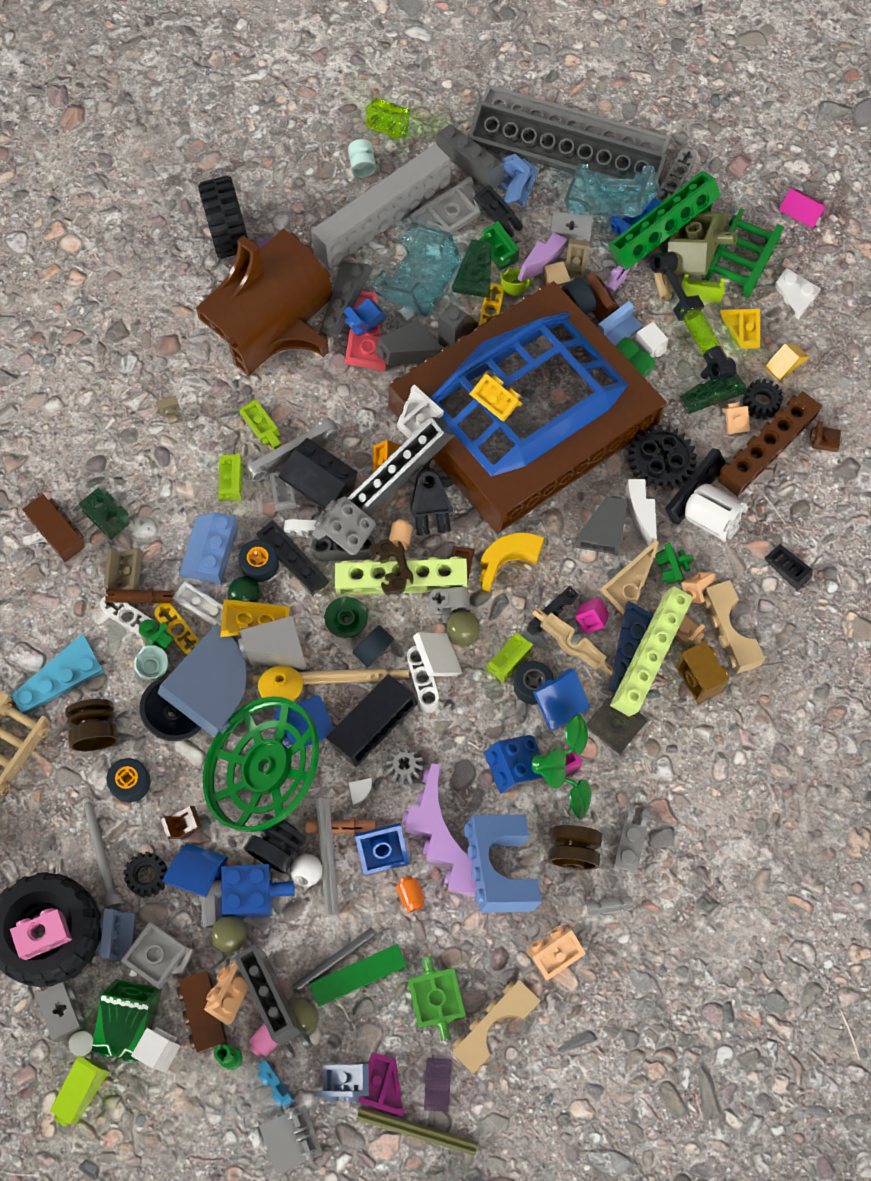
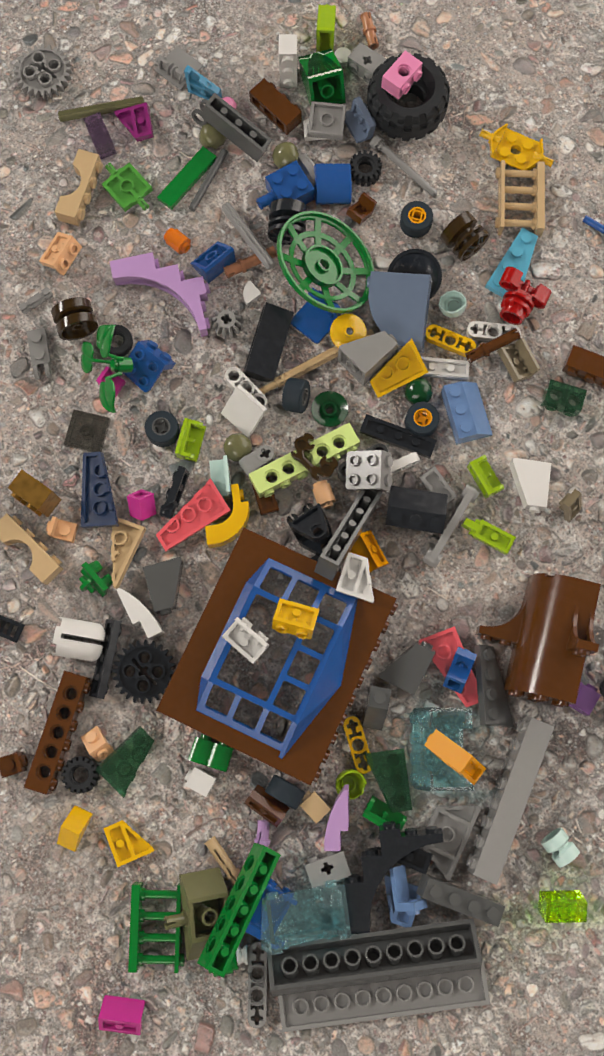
camera: 155 degrees right, 10 degrees up
(28, 1061) = (369, 30): none -> nougat pin
(73, 634) = (520, 297): none -> red beam
(155, 636) = (459, 321): green hips -> none
(189, 450) = (532, 482): none -> white slope
(226, 995) = (264, 116): light nougat bracket -> none
(226, 1060) = (241, 84): green pin -> none
(306, 870) = (257, 220): white piece -> none
(344, 1081) = (160, 105): sand blue bracket -> none
(412, 251) = (455, 756): none -> light orange window
(494, 891) = (114, 255): medium blue arch -> none
(496, 604) = (221, 476): none -> light aqua panel
(524, 208) = (376, 863): none -> black arch
(538, 577) = (193, 517): none -> coral wing
(542, 796) = (127, 344): none -> black tyre
(552, 401) = (246, 640): none -> white bracket
(561, 699) = (132, 421): blue slope -> none
(563, 634) = (155, 473): tan piece -> none
(577, 257) = (305, 833): dark tan plate -> none
(620, 324) = (236, 786): light blue panel -> none
(651, 651) = (79, 490): yellowish green brick -> none
(690, 311) = (177, 825): black piece -> none
(697, 584) = (68, 569): light nougat bracket -> none
(706, 290) = (182, 864): lime hinge -> none
(796, 291) = (93, 910): white wing -> none

